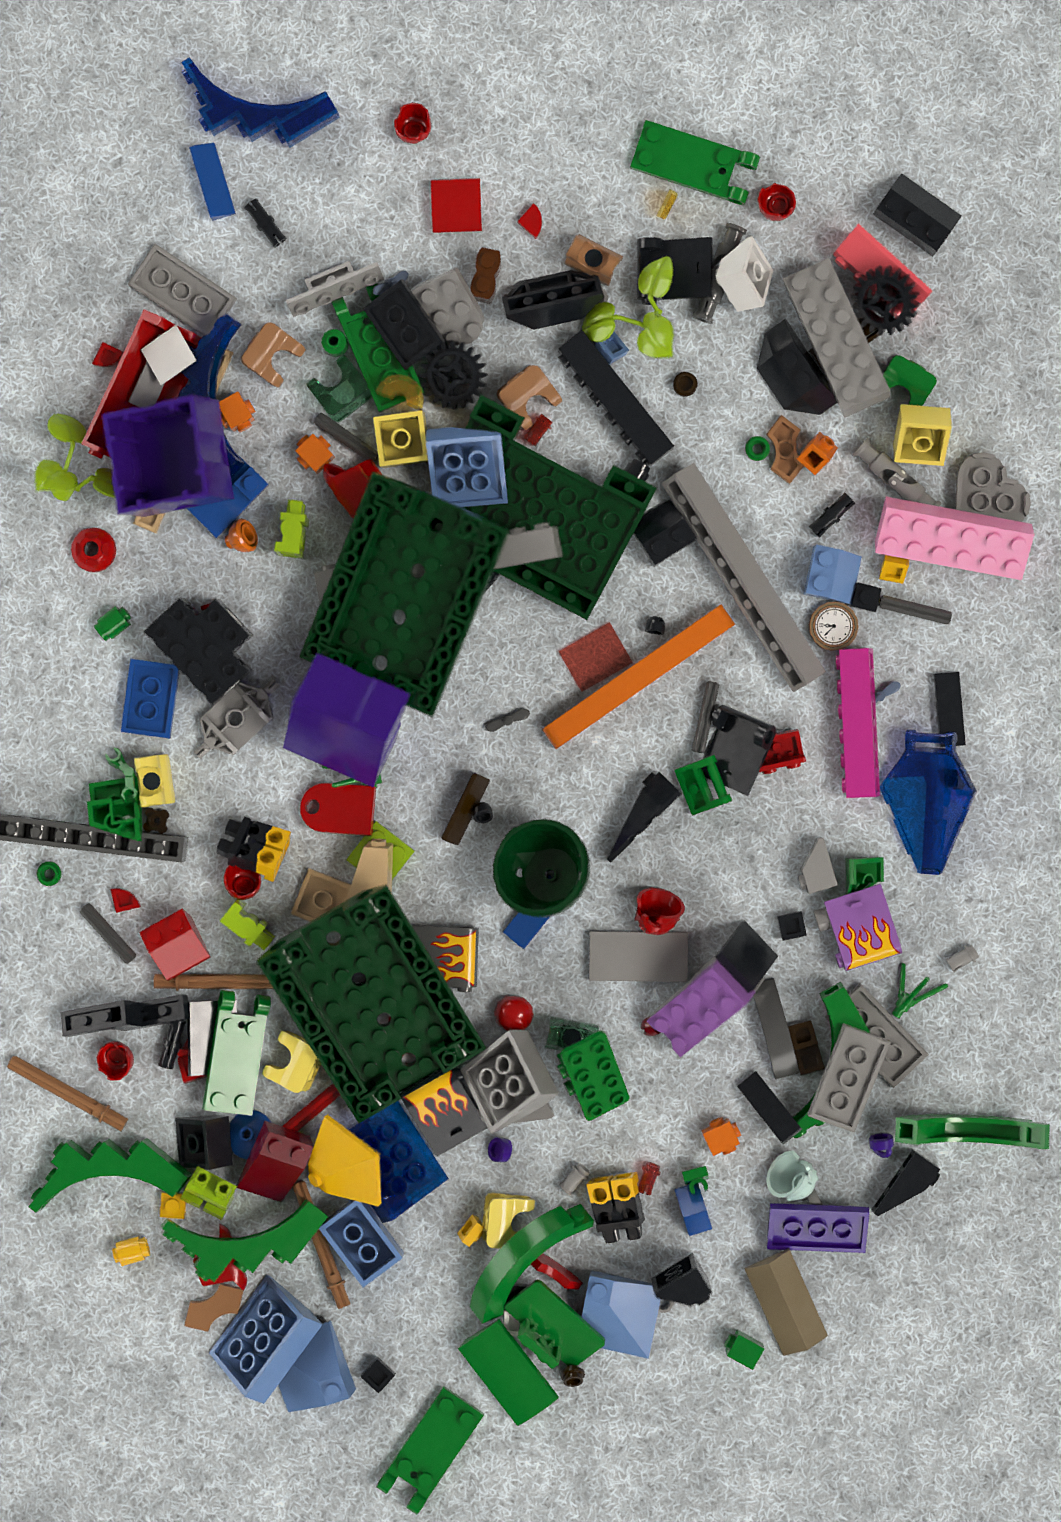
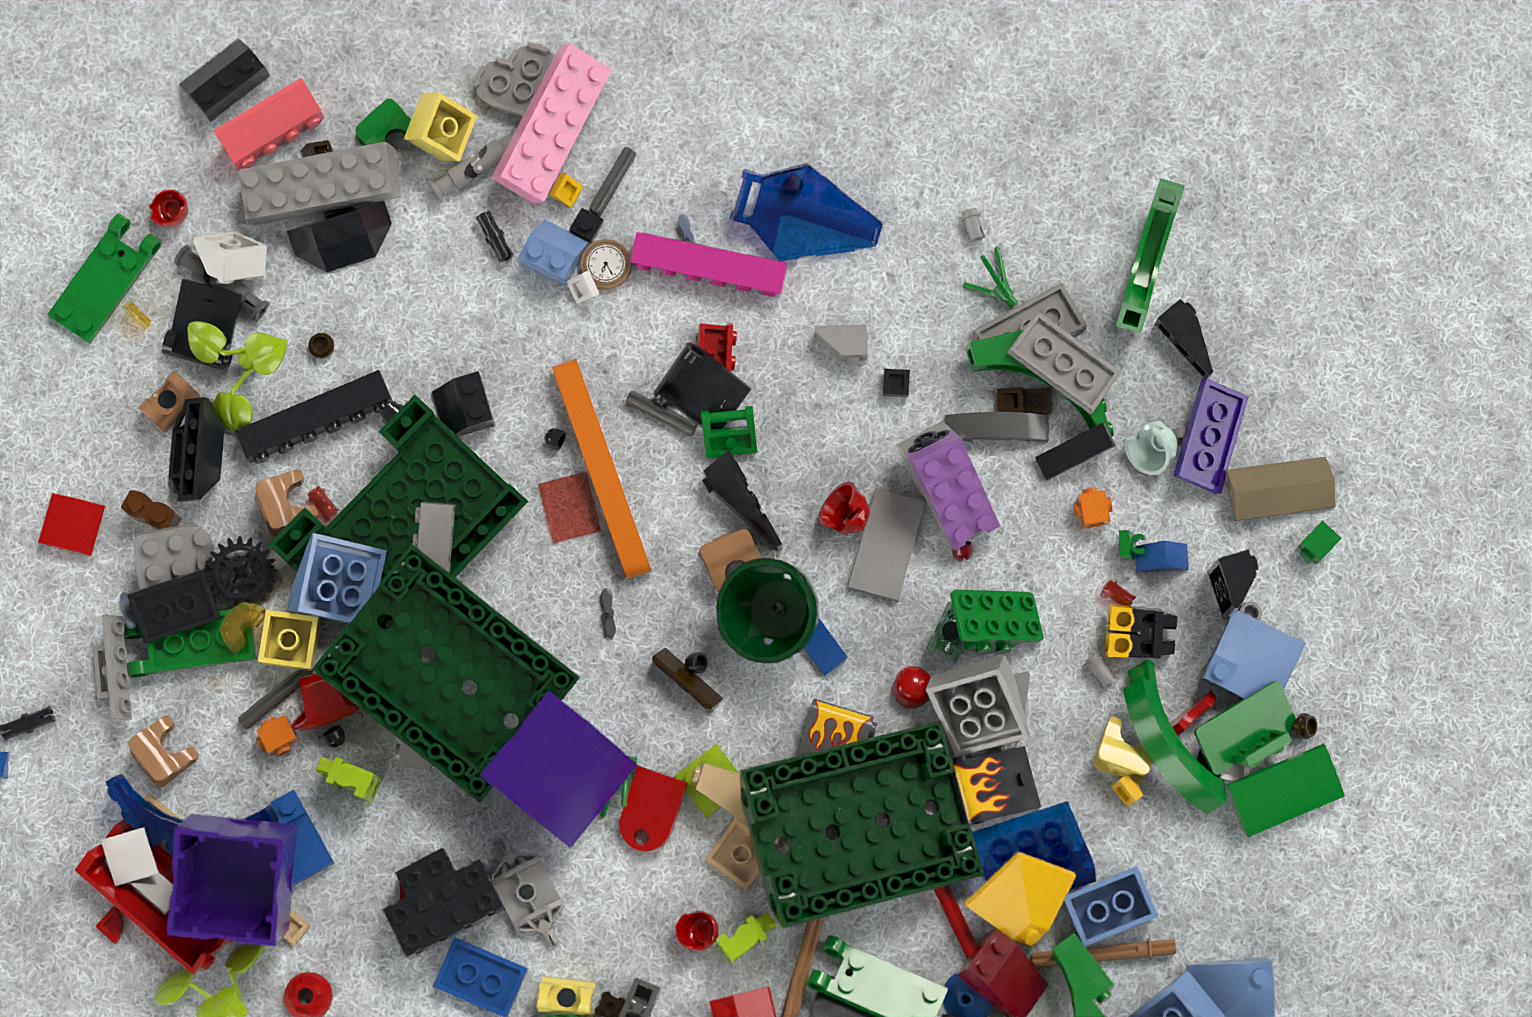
camera: 75 degrees left, 10 degrees down
(113, 623) = (390, 995): green brick -> none
(181, 290) = (69, 829): light grey tile -> none
(236, 412) = (211, 802): orange brick -> none
(242, 536) = (340, 834): orange brick -> none
(255, 846) = (665, 906): black hips -> none
(302, 1067) = (909, 919): light yellow piece -> none
(328, 504) = (334, 736): none -> black hinge
(337, 350) = (178, 686): green brick -> none
(346, 395) = (229, 689): clear green piece -> none
(378, 1375) = (1256, 930): black plate -> none
(432, 1446) = (1347, 894): green hinge -> none
(500, 1150) = (1050, 738): dark purple tile -> none
(531, 221) = (111, 453): red tile -> none
(592, 812) = (724, 550): none -> medium nougat piece
(612, 348) = (263, 406): medium blue plate -> none
(743, 577) = (531, 337): light grey brick -> none
(746, 956) = (914, 431): black tile -> none
(760, 441) = (407, 284): green plate -> none
(784, 436) = (406, 264): medium nougat tile -> none
(804, 611) = (582, 287): none -> white plate
(817, 453) = (428, 232): orange brick -> none
(822, 919) = (897, 350): light grey axle -> none
(862, 928) = (918, 312): medium lavender door -> none
(863, 872) = (863, 301): green slope -> none
(867, 305) = (307, 128): black gear -> none
(880, 1142) = (1139, 351): dark purple tile -> none
(949, 705) = (716, 173): black tile -> none

